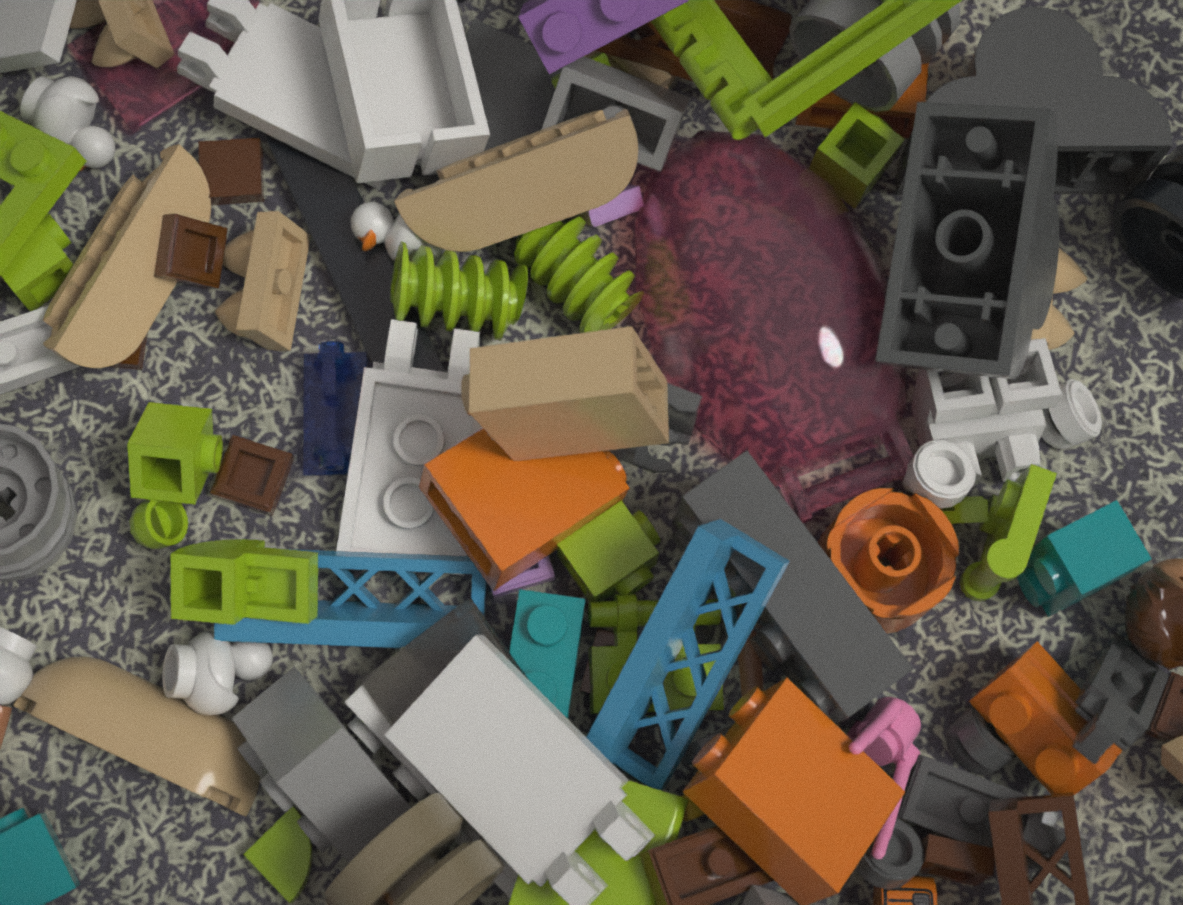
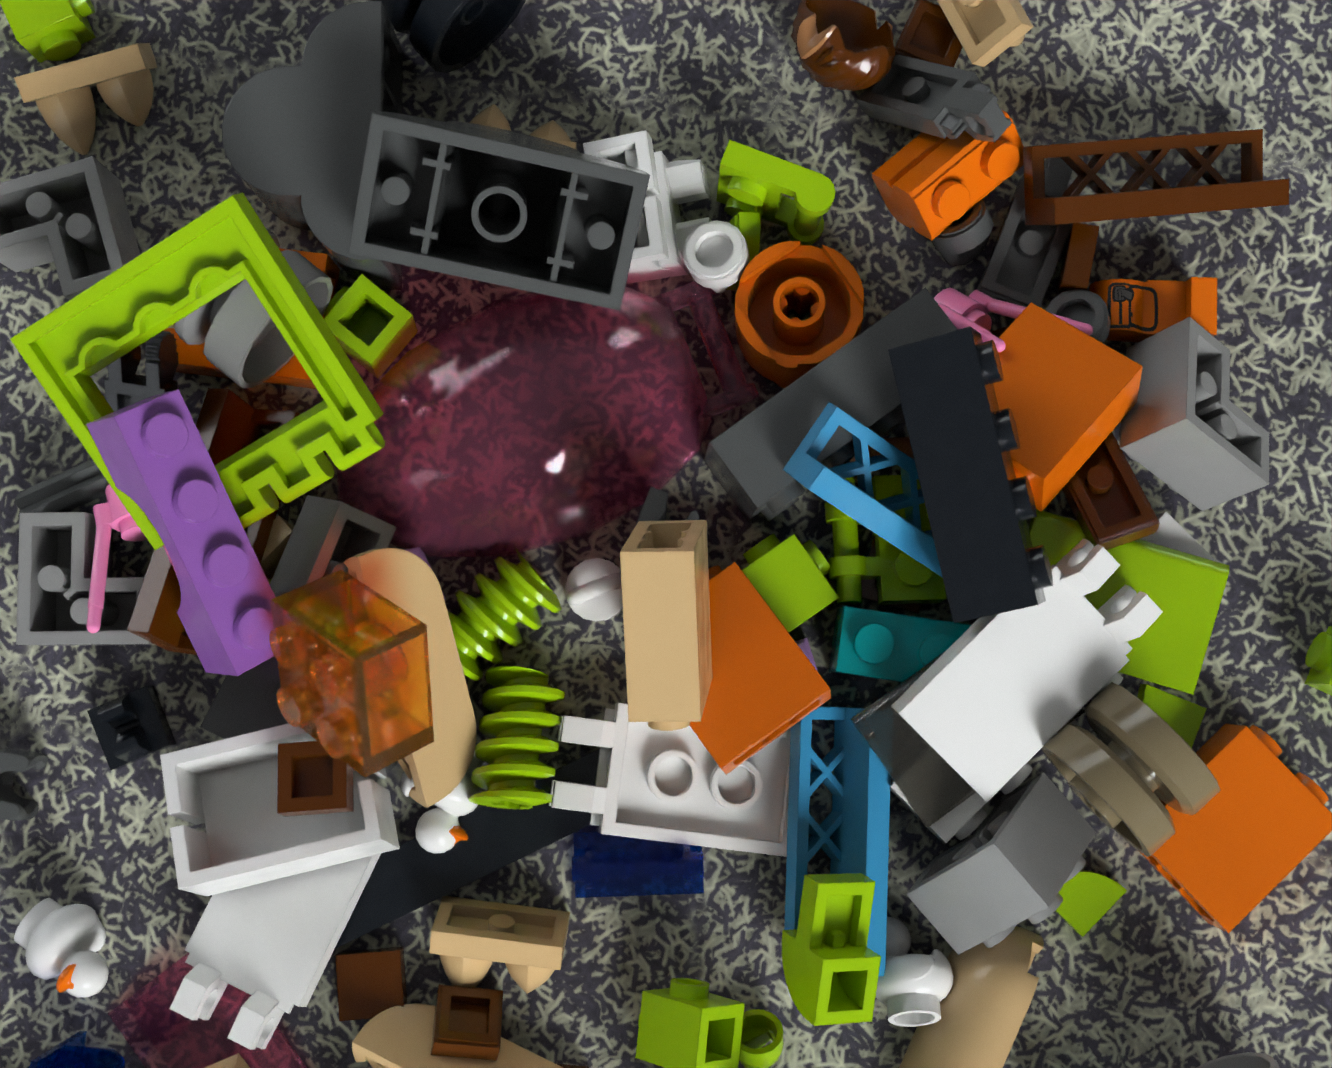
camera: 85 degrees left, 10 degrees up
(252, 475) = (703, 945): reddish brown tile -> none
(424, 92) = (312, 781): none -> reddish brown tile
(520, 112) = (353, 671): none -> clear orange brick
(717, 695) = (969, 475): none -> black brick
(1074, 416) = (641, 116): white tile -> none
(1082, 559) = (800, 117): teal brick -> none

